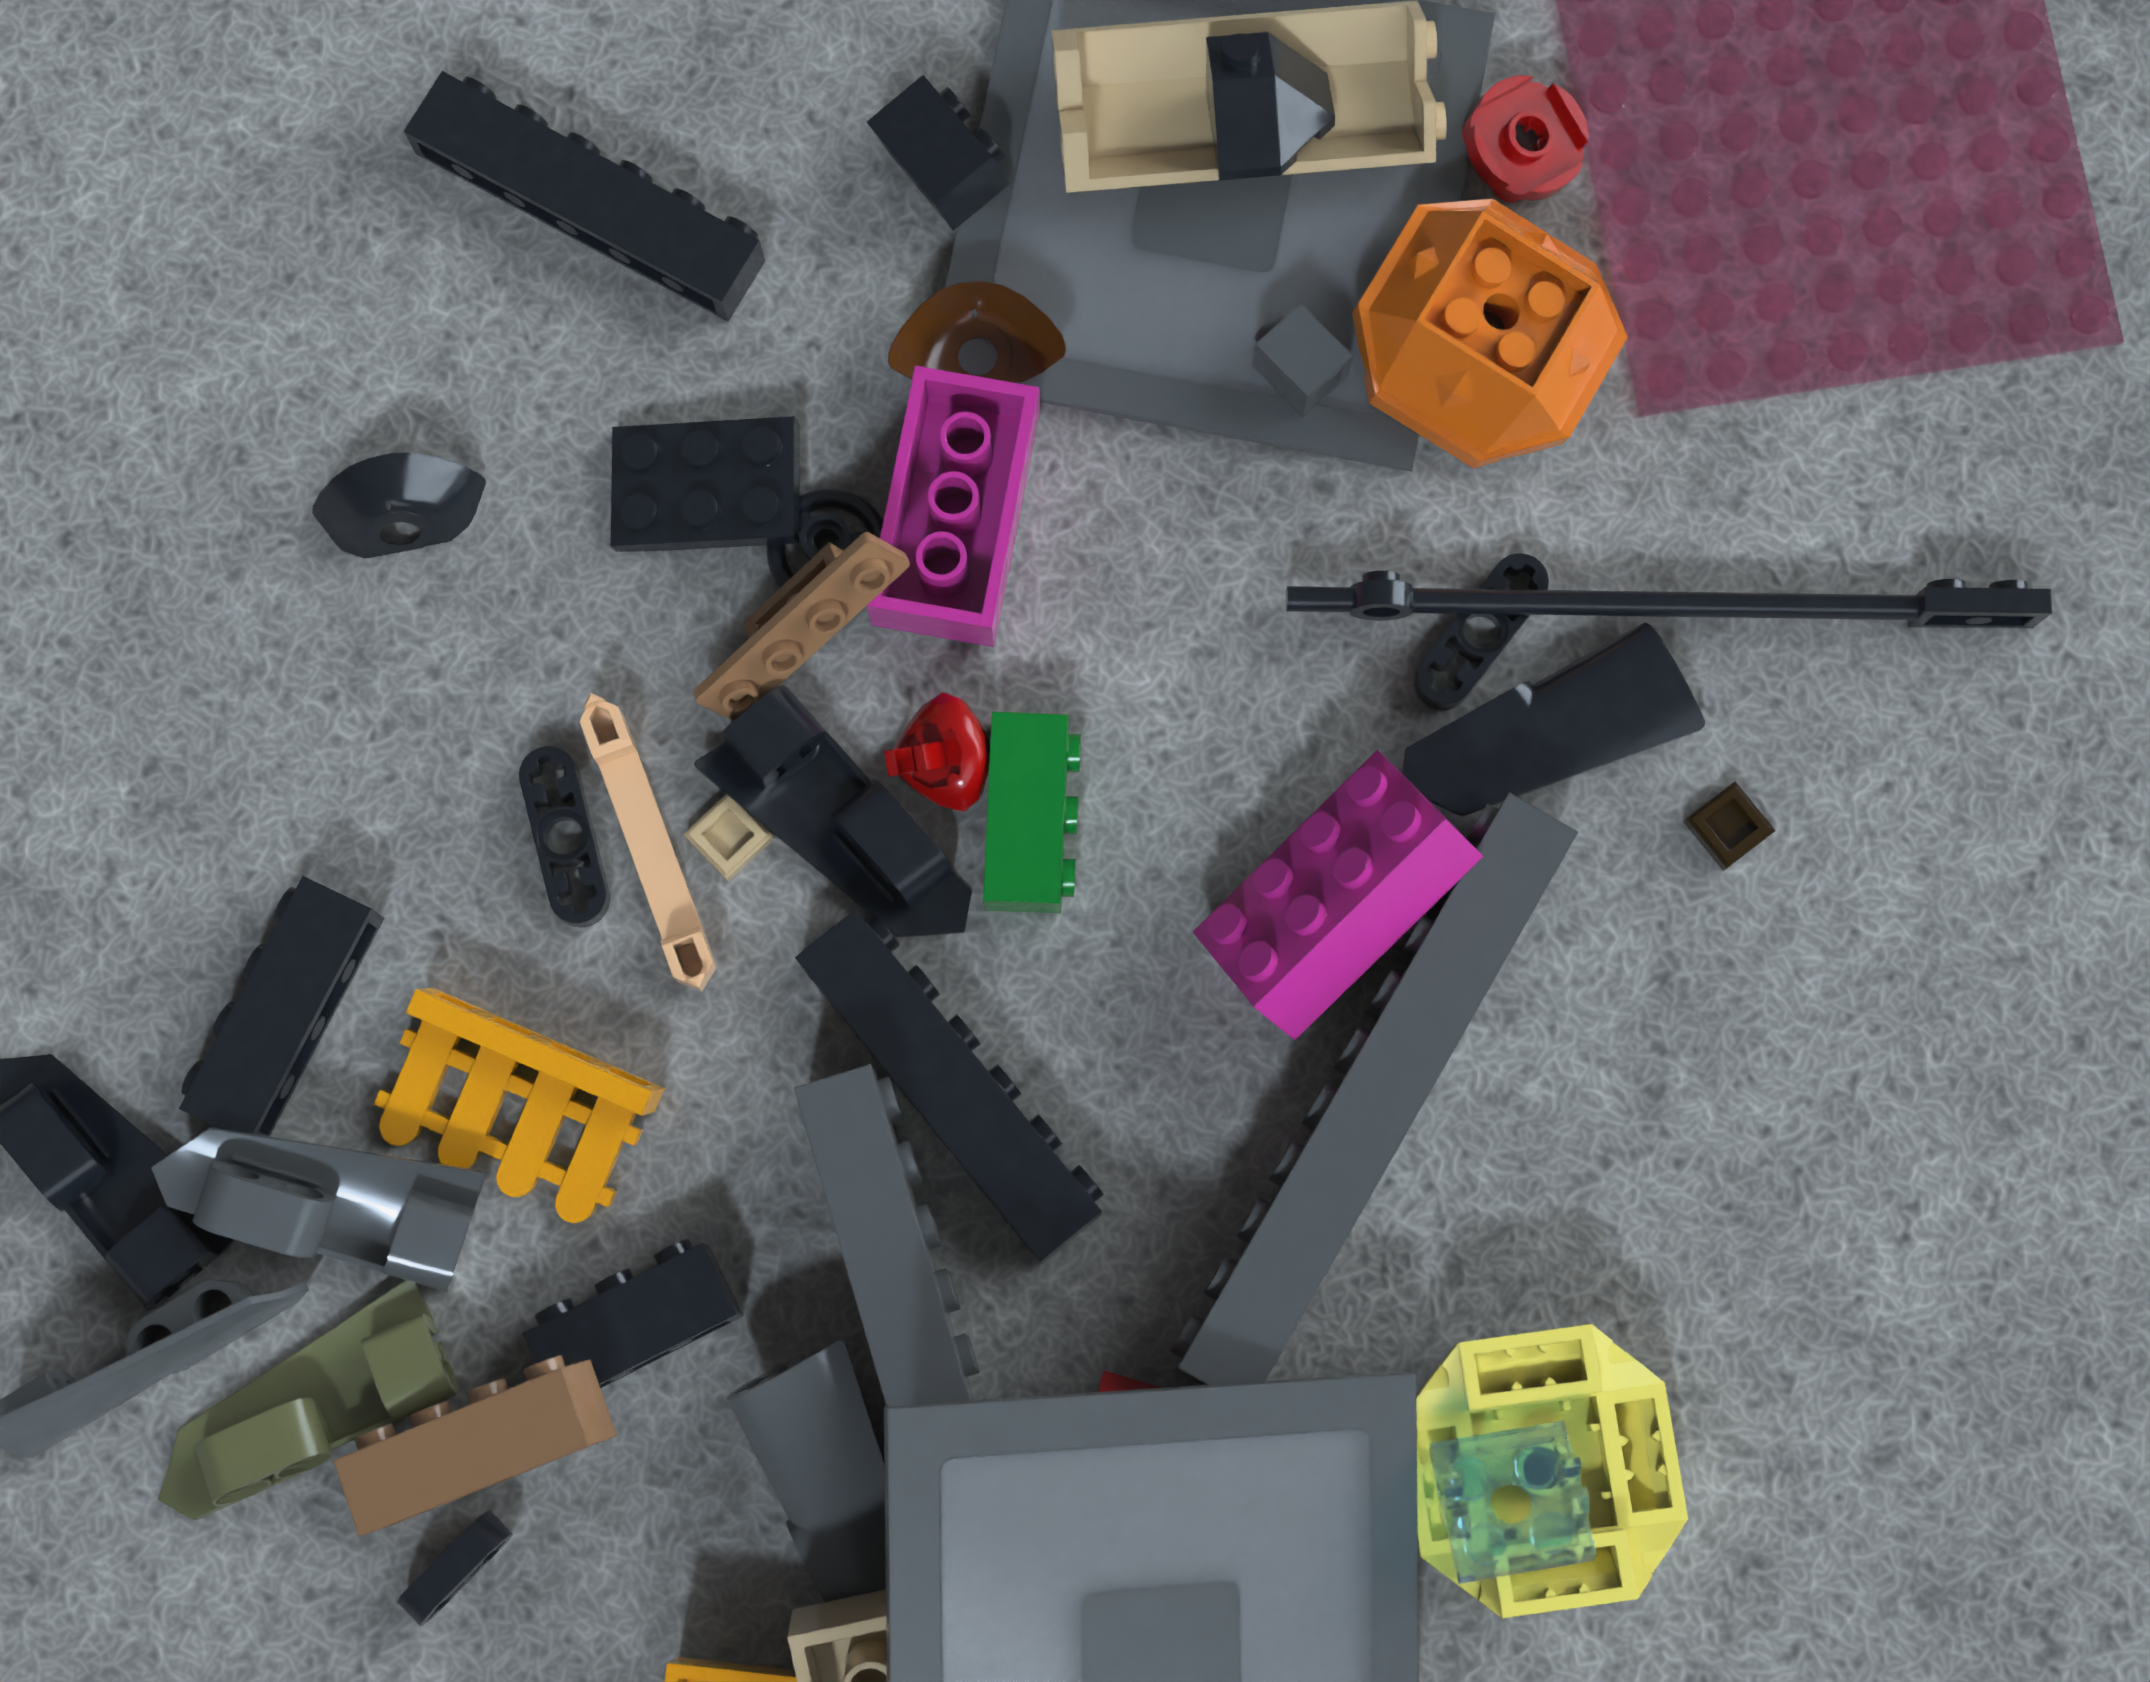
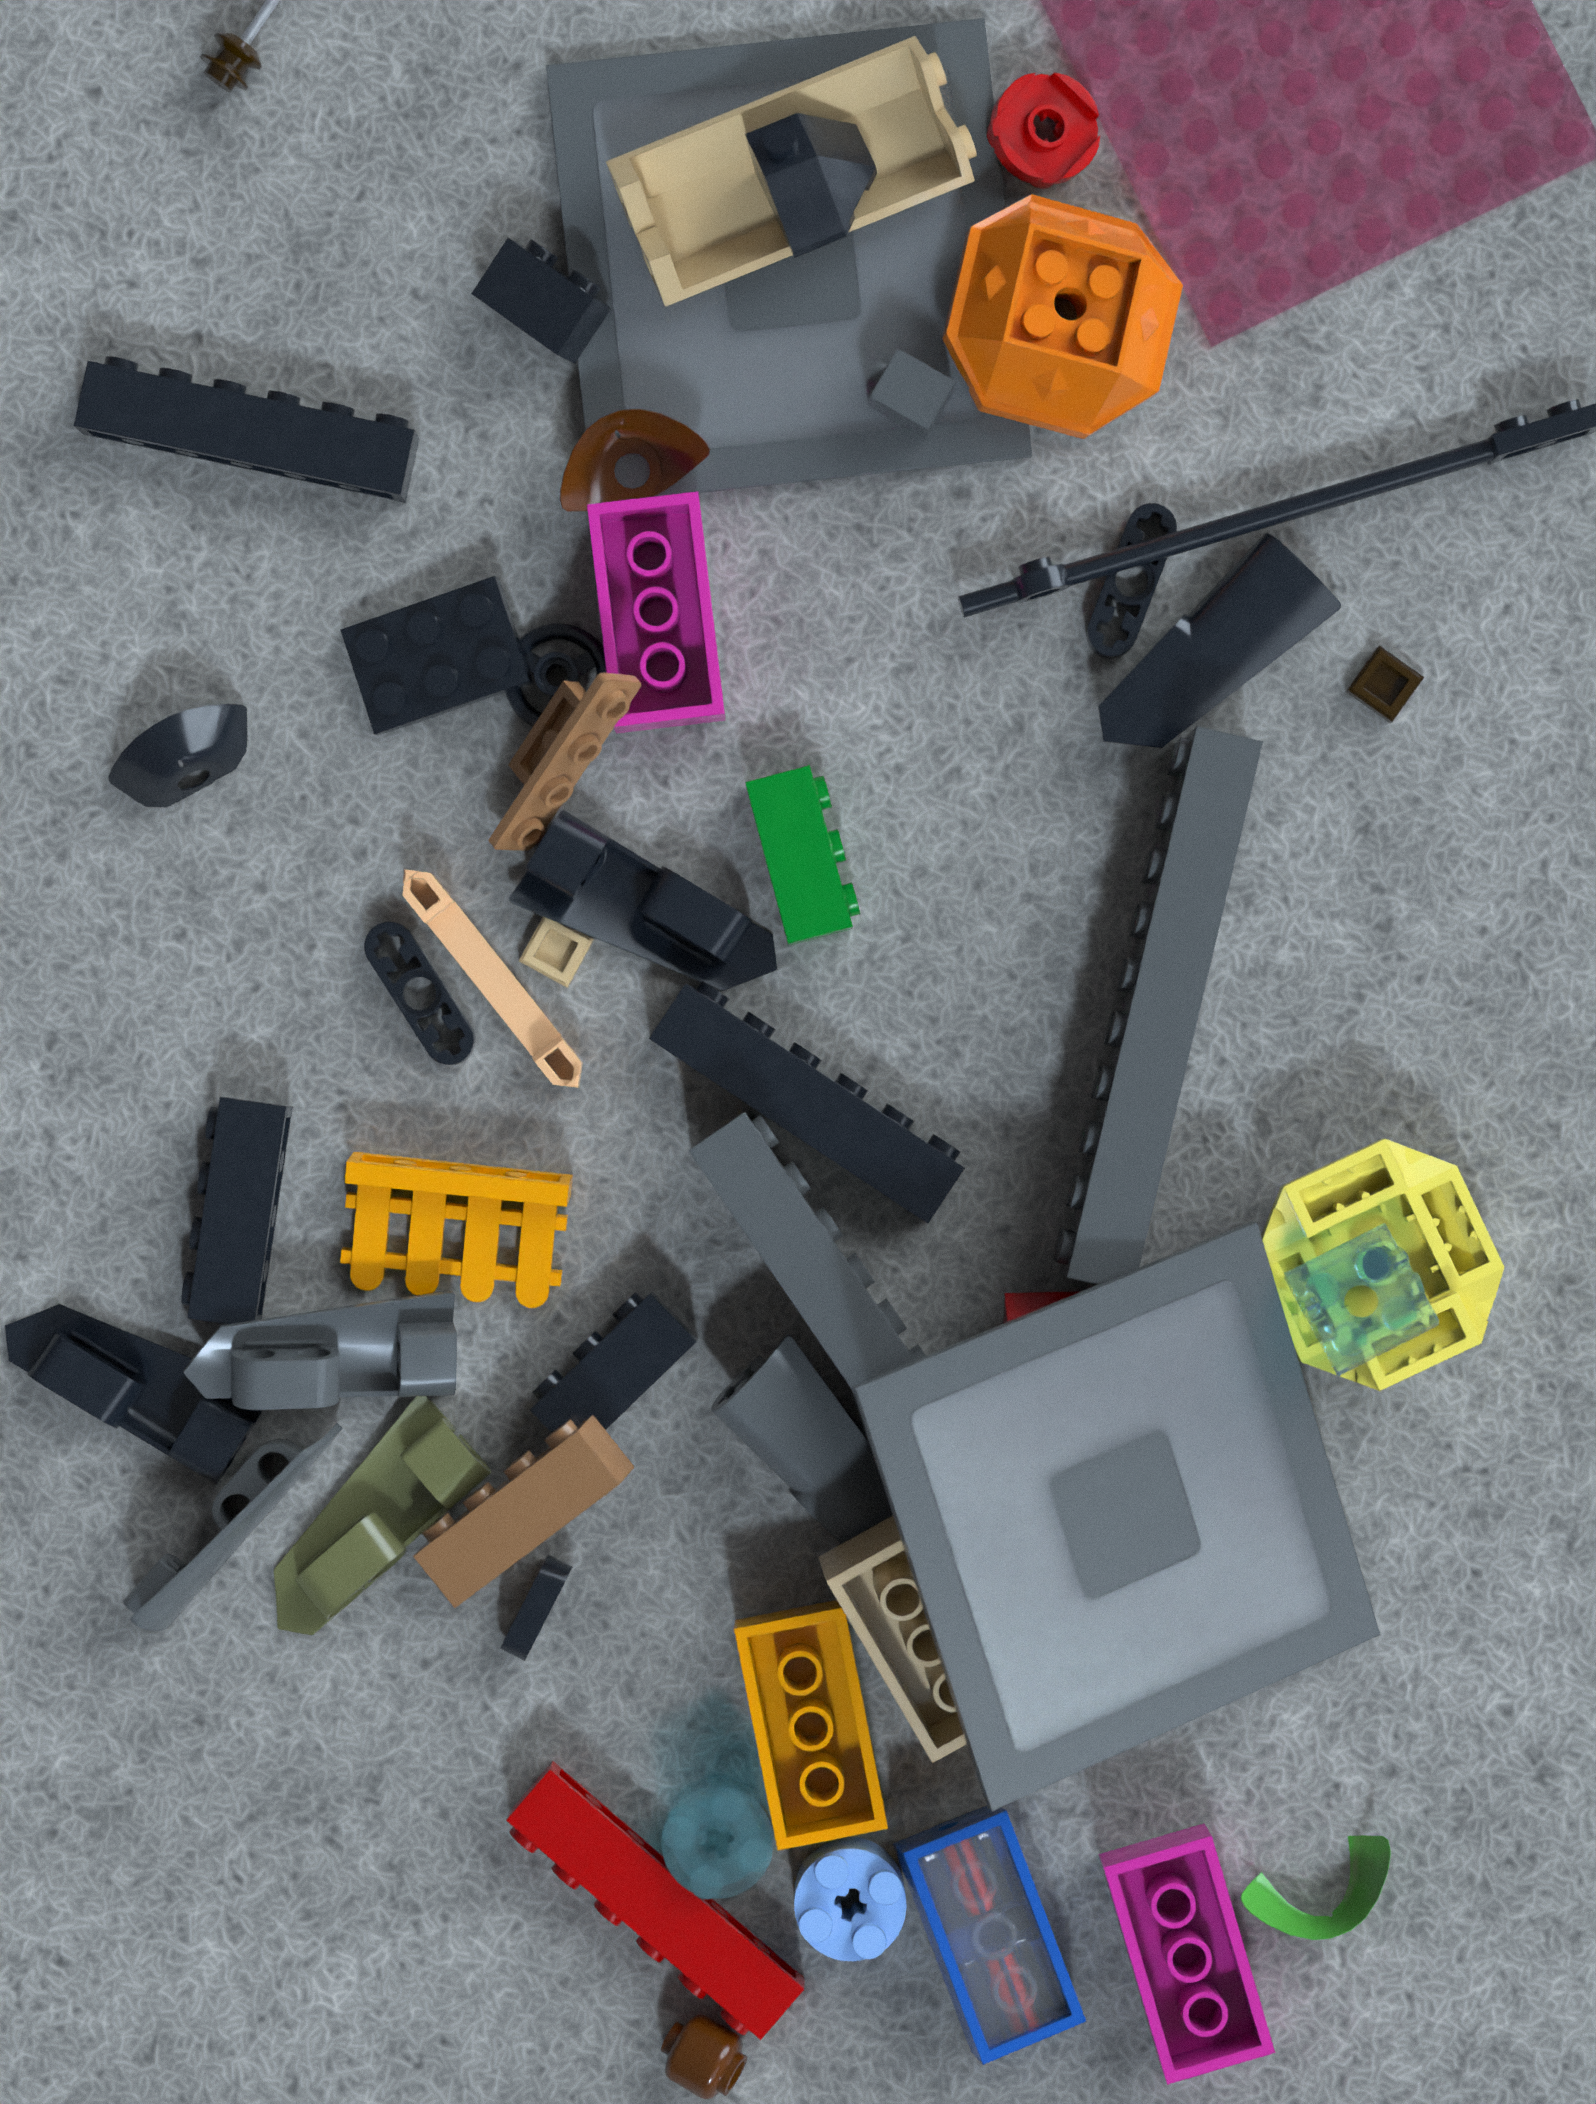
camera: 20 degrees left, 10 degrees up
(943, 753) = (714, 828): red piece -> none
(1336, 895) = (1079, 852): dark pink brick -> none

